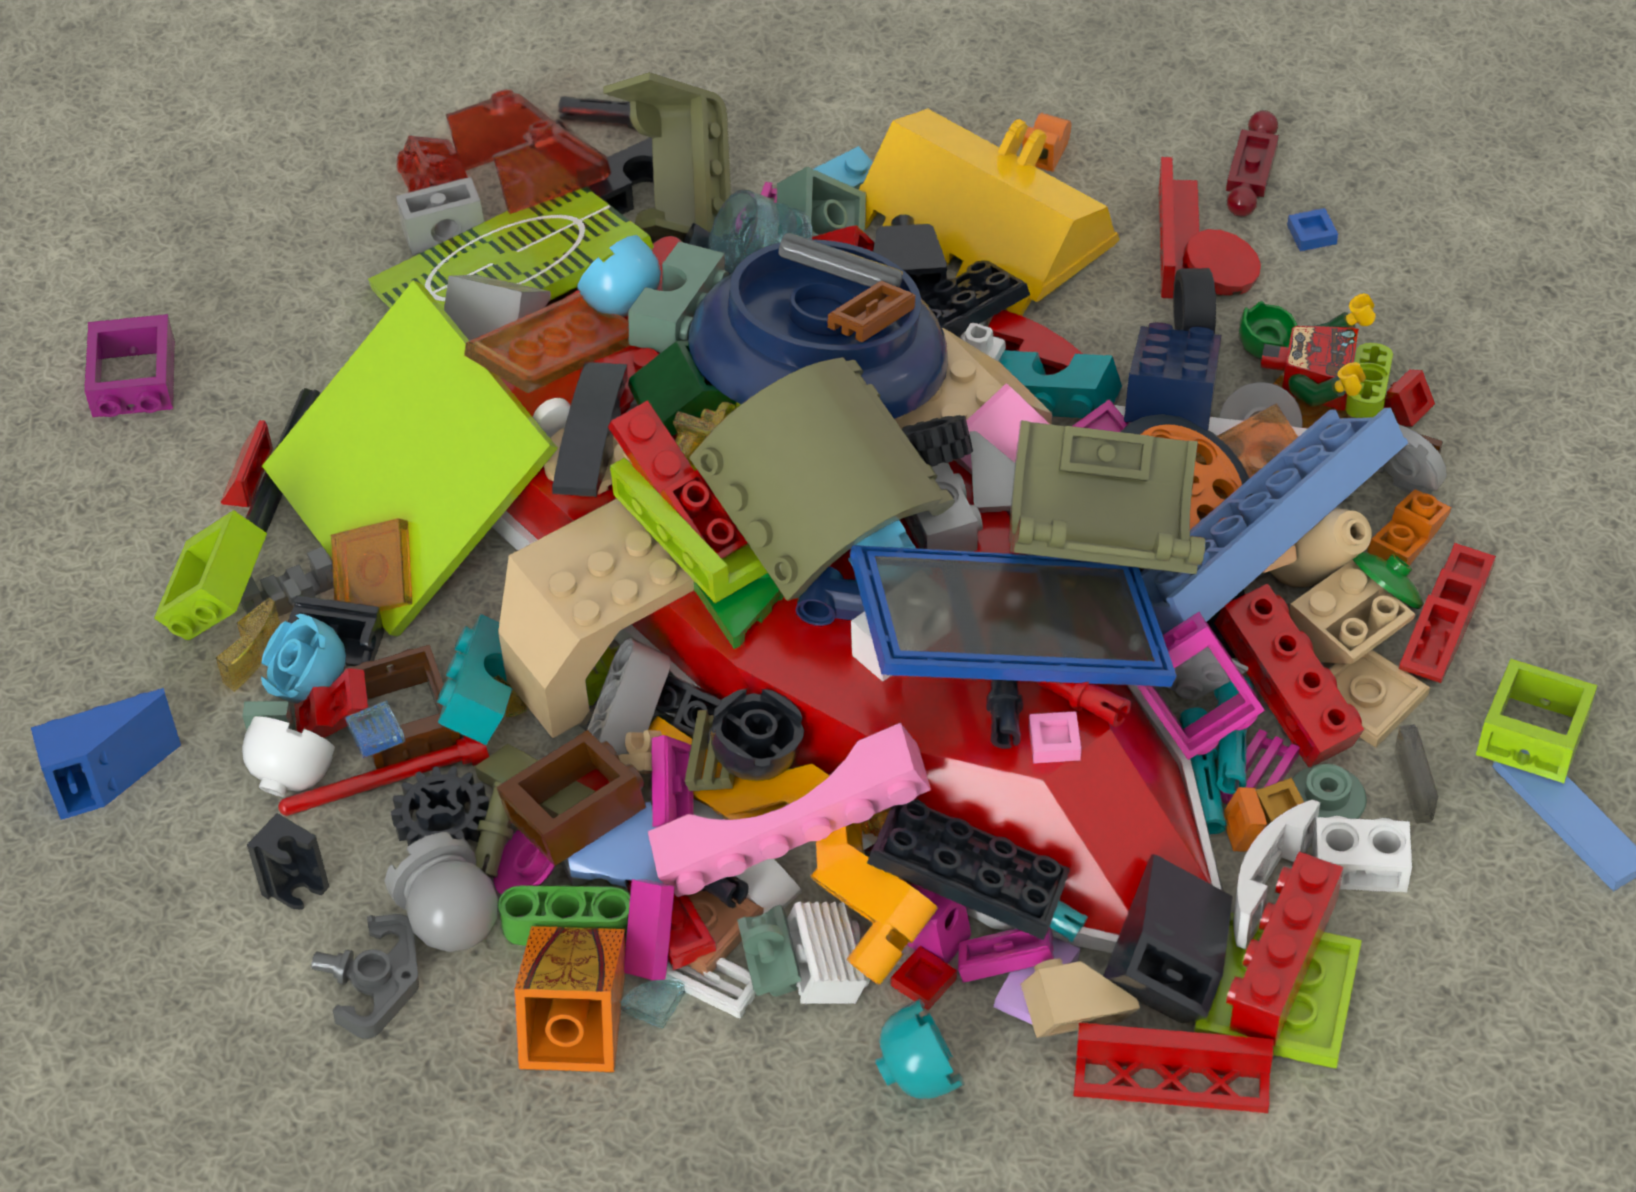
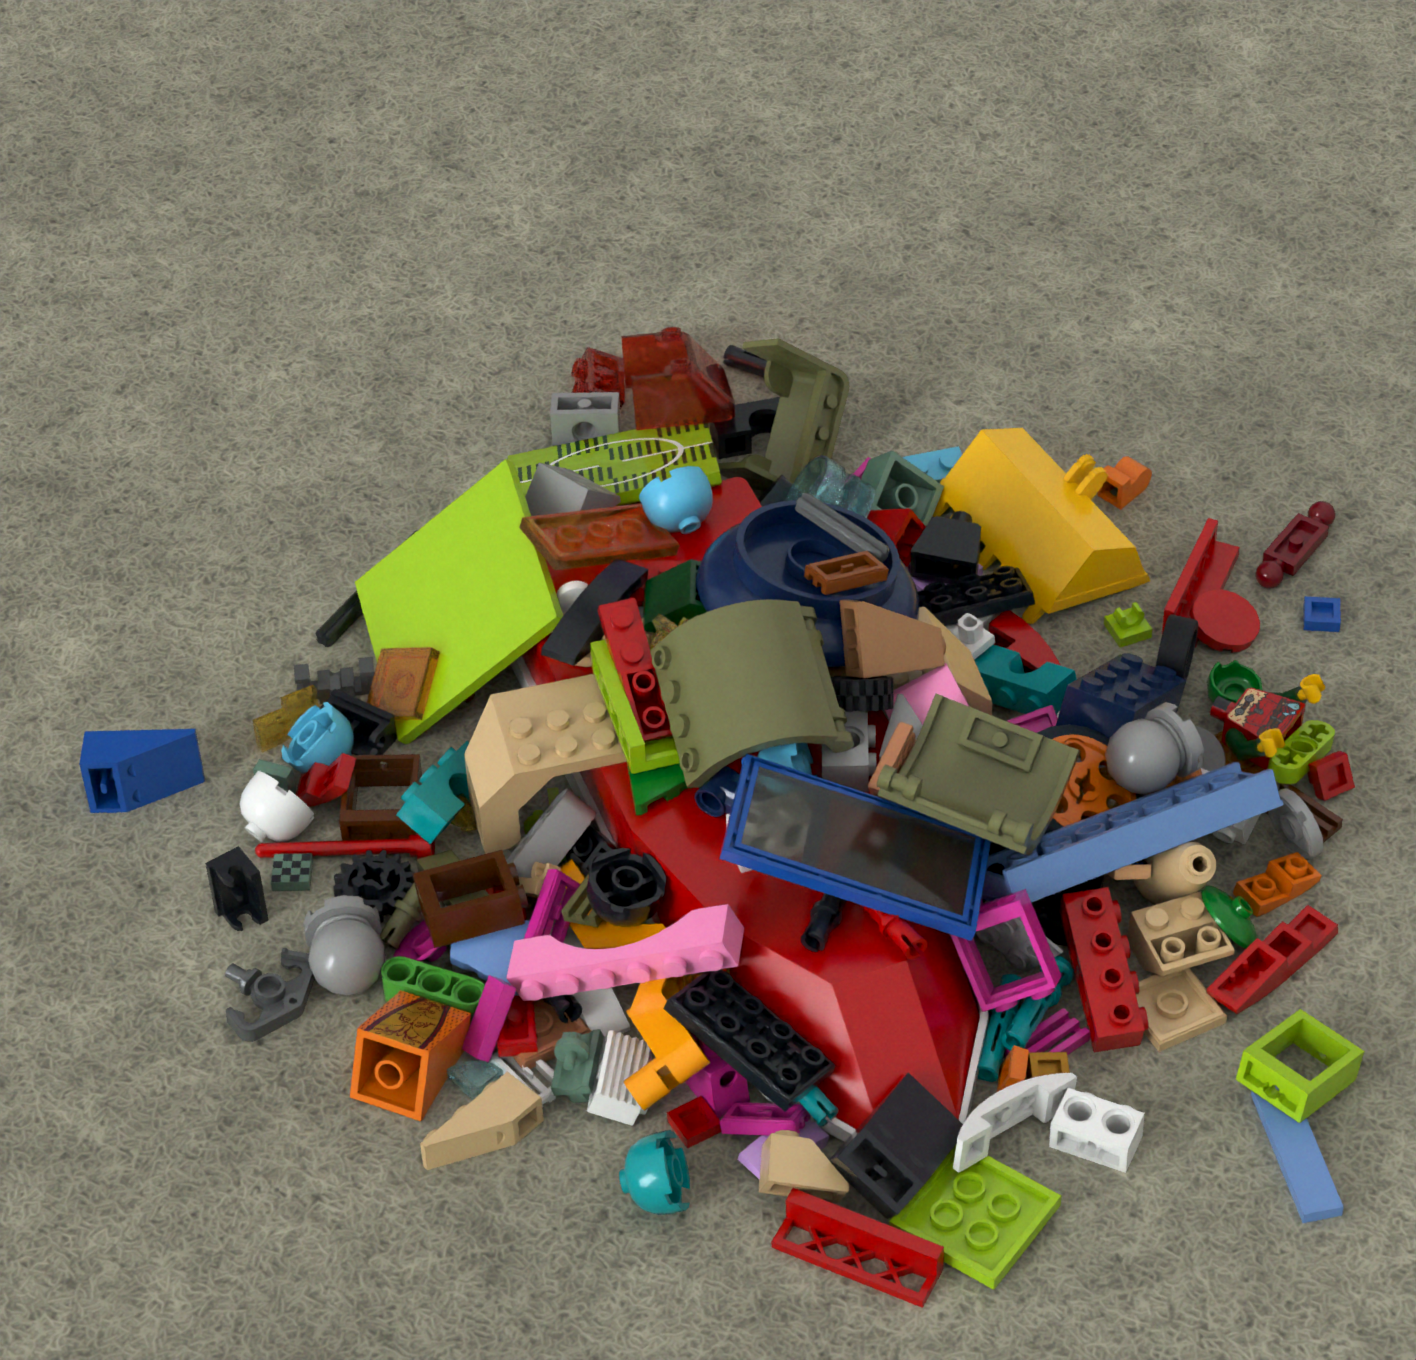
camera: 20 degrees right, 5 degrees down
(124, 339) = (295, 455): magenta window -> none
(210, 576) = (275, 656): lime window -> none
(248, 467) = (344, 584): red slope -> none
(334, 822) = (292, 872): none -> sand green tile
(375, 729) = (346, 807): clear light blue tile -> none
(666, 315) = (692, 535): sand green arch -> none
(701, 1049) = (490, 1122): none -> tan slope
(940, 377) = (887, 642): none -> medium nougat slope
(999, 508) = (895, 753): none -> nougat tile
(1054, 737) = (855, 953): bright pink tile -> none
(1123, 293) = (1128, 625): none -> lime tile
(1250, 419) = (1153, 750): none -> light grey tile
(1286, 947) = (987, 1179): red brick -> none
(1347, 794) = (1111, 1084): sand green piece -> none
(1416, 773) = (1176, 1080): clear smoke tile -> none

